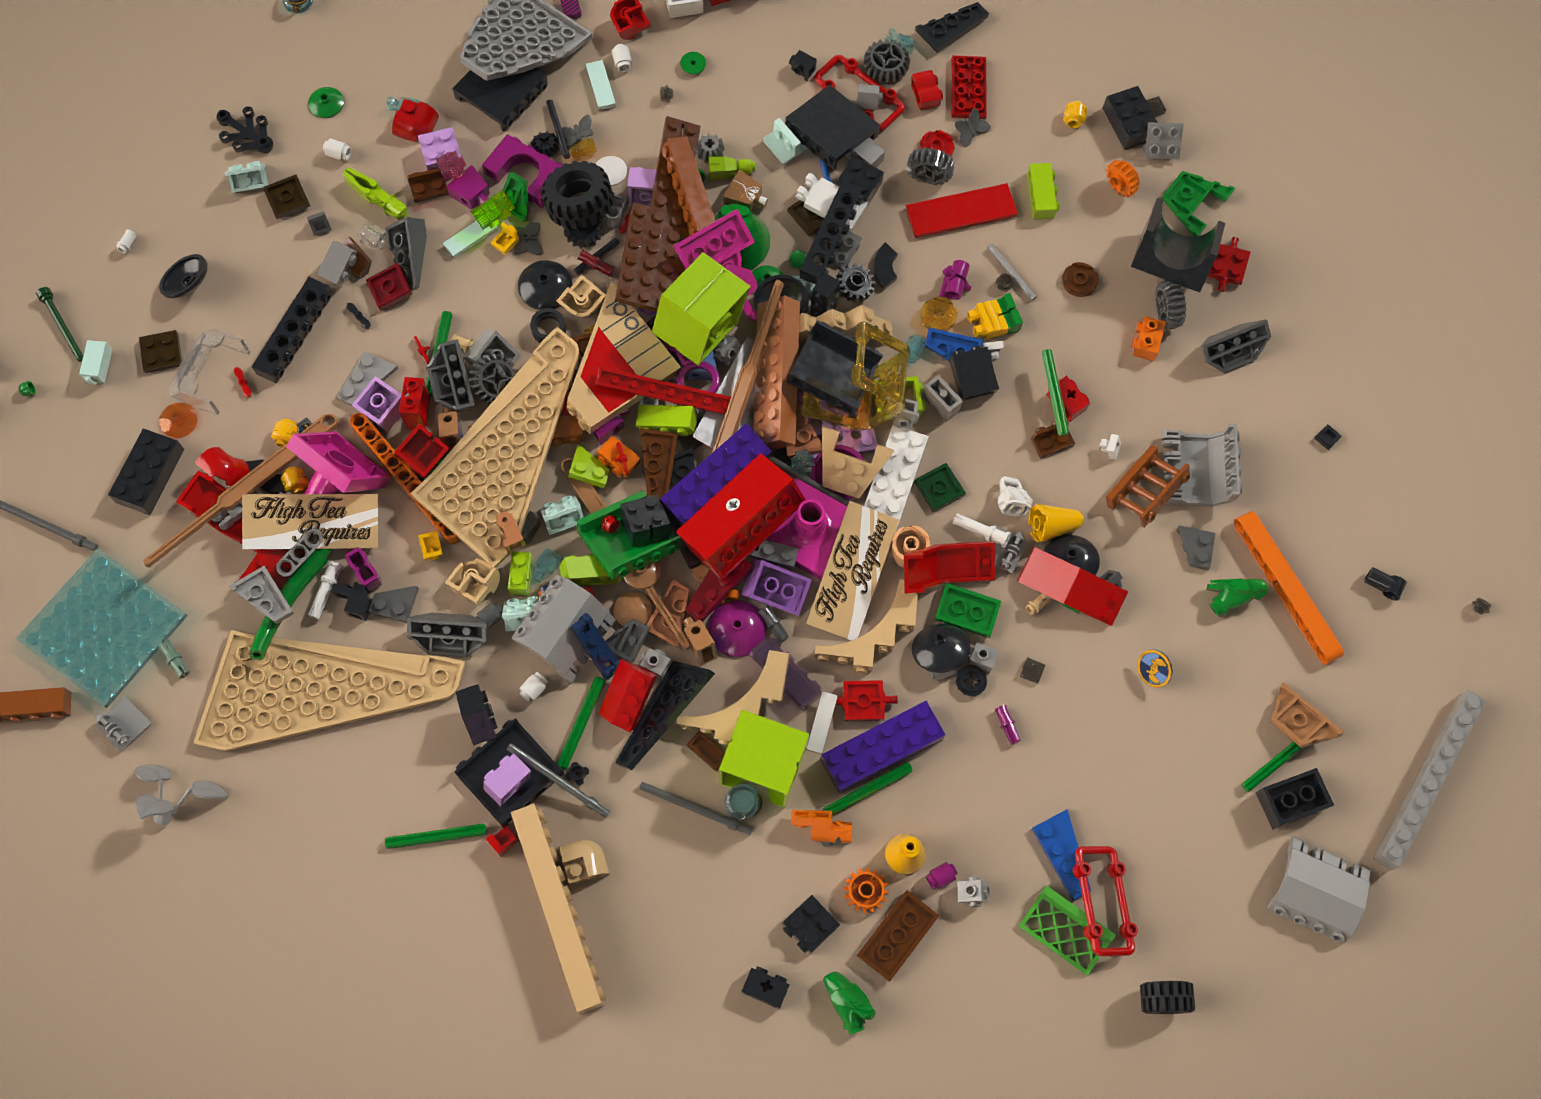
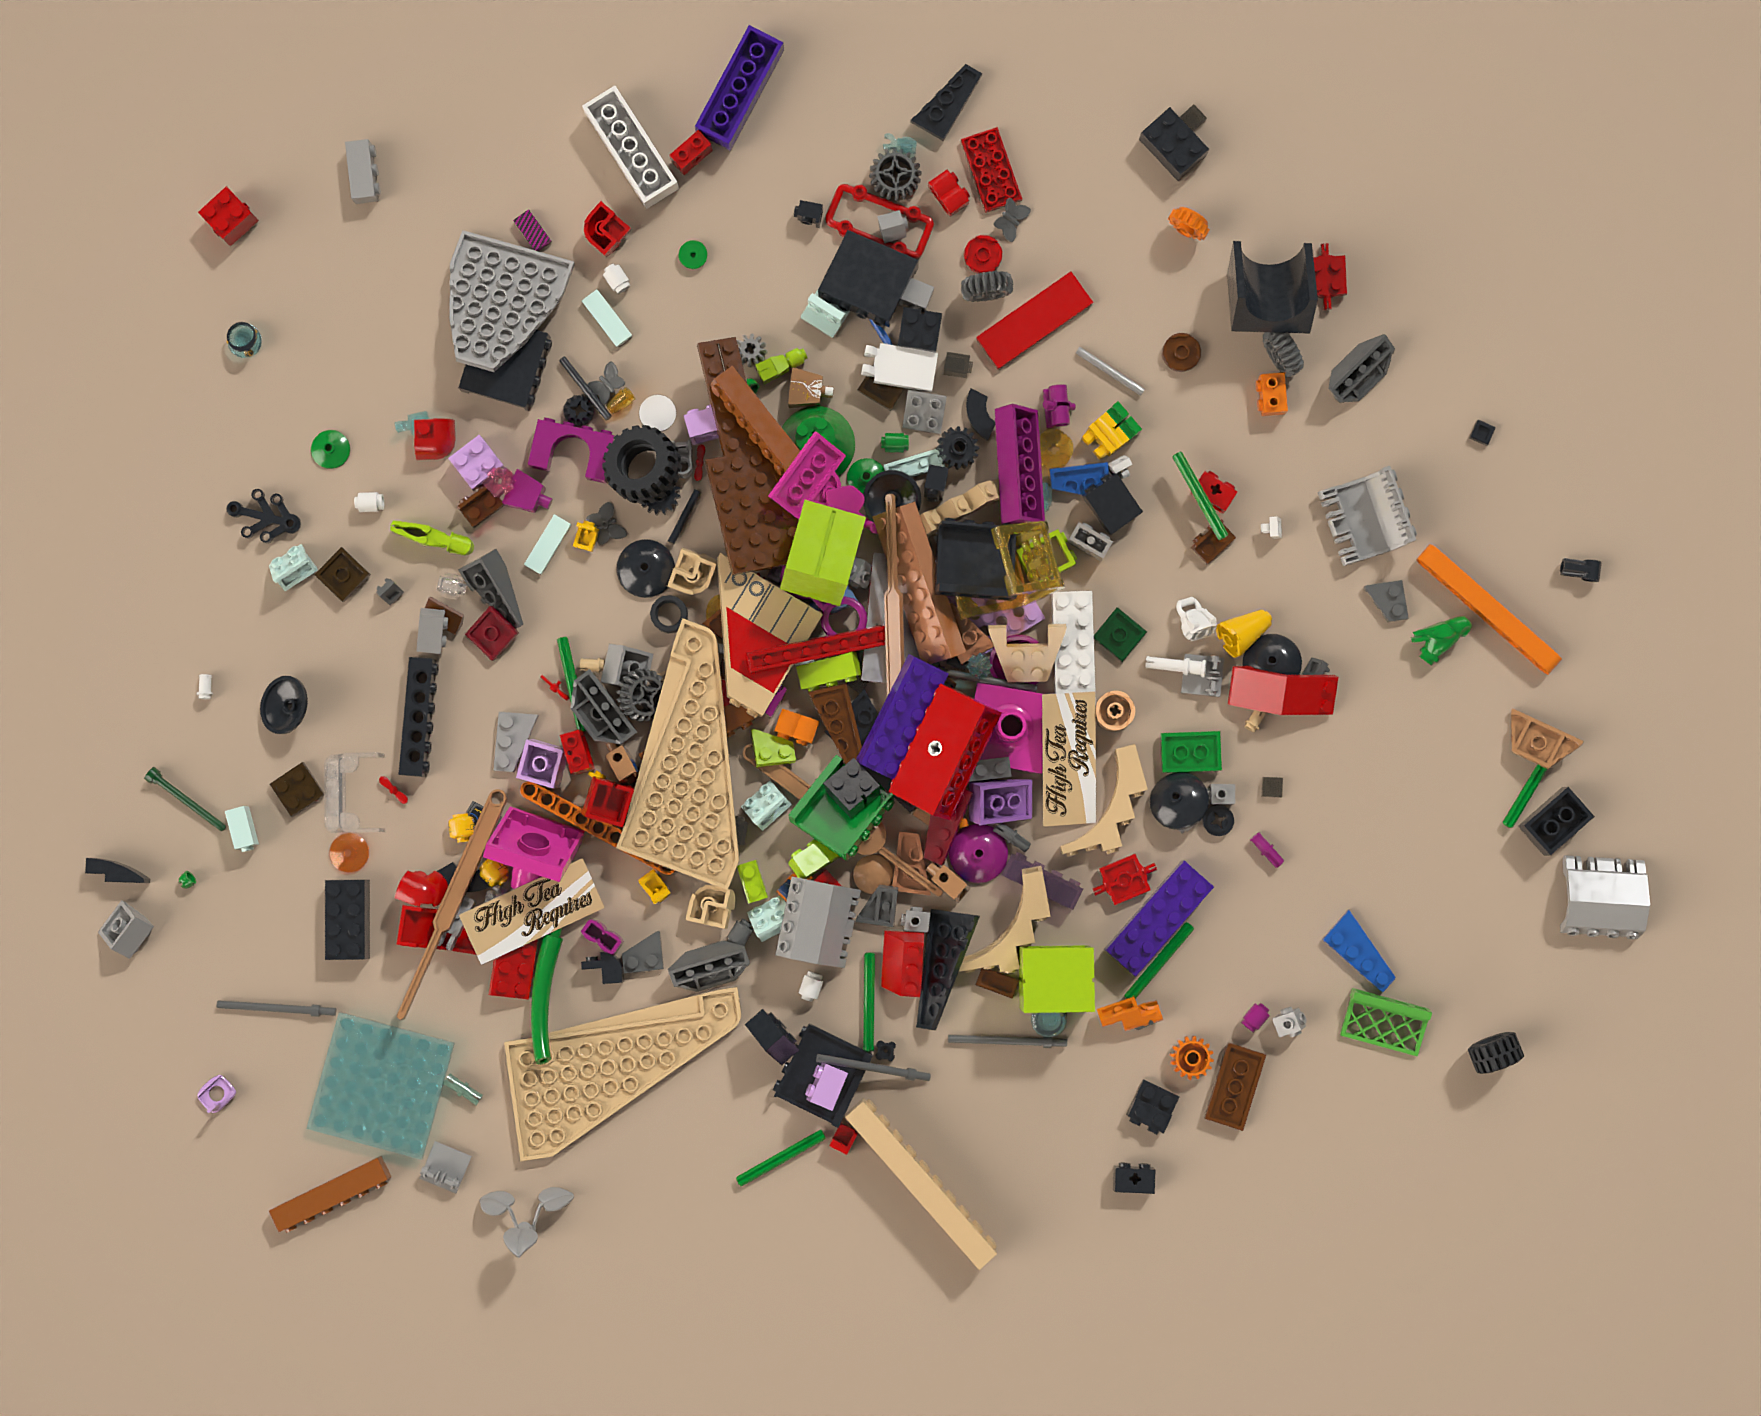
camera: 15 degrees left, 15 degrees up
(263, 594) = (522, 1000): light grey wing -> none
(297, 561) = (536, 955): light grey beam -> none
(327, 581) = (573, 975): white pin -> none
(358, 315) = (474, 674): black piece -> none
(492, 210) = (561, 512): clear neon green brick -> none
(509, 527) = (730, 850): nougat leg -> none
(517, 191) = (576, 486): green wing -> none
(546, 563) = (772, 858): clear light blue plate -> none
(583, 861) = (924, 1128): tan brick -> none
(595, 263) = (688, 527): dark red pin -> none
(595, 646) = (856, 928): dark blue plate -> none
(610, 524) = (819, 803): red plate -> none
(622, 458) = (802, 730): red piece -> none
(666, 93) = (679, 302): clear smoke plate -> none
(822, 722) = (1093, 915): white sticker -> none
(846, 193) = (914, 356): black brick -> none
(848, 1002) = (1213, 1163): green animal -> none
(881, 220) = (957, 365): none -> clear smoke brick
(905, 304) = (1019, 464): none -> magenta brick
(905, 854) = (1208, 1005): yellow cone -> none
(908, 416) = (1068, 576): light grey brick -> none
(948, 564) = (1156, 715): red windscreen -> none
(1004, 278) = (1107, 391): clear smoke plate -> none
(1042, 191) = (1110, 266): lime brick -> none
(1075, 114) = (1114, 161): yellow head -> none
(1093, 930) = (1410, 1018): red bar -> none
(1140, 471) = (1310, 545): dark orange fence -> none
(1154, 668) = (1388, 743): shield -> none
(1163, 140) = (1216, 161): light grey hinge -> none
(1188, 193) = (1260, 212): green wing -> none
(1429, 780) = (1676, 752): light grey brick -> none
(1481, 606) = (1679, 557): clear smoke plate -> none

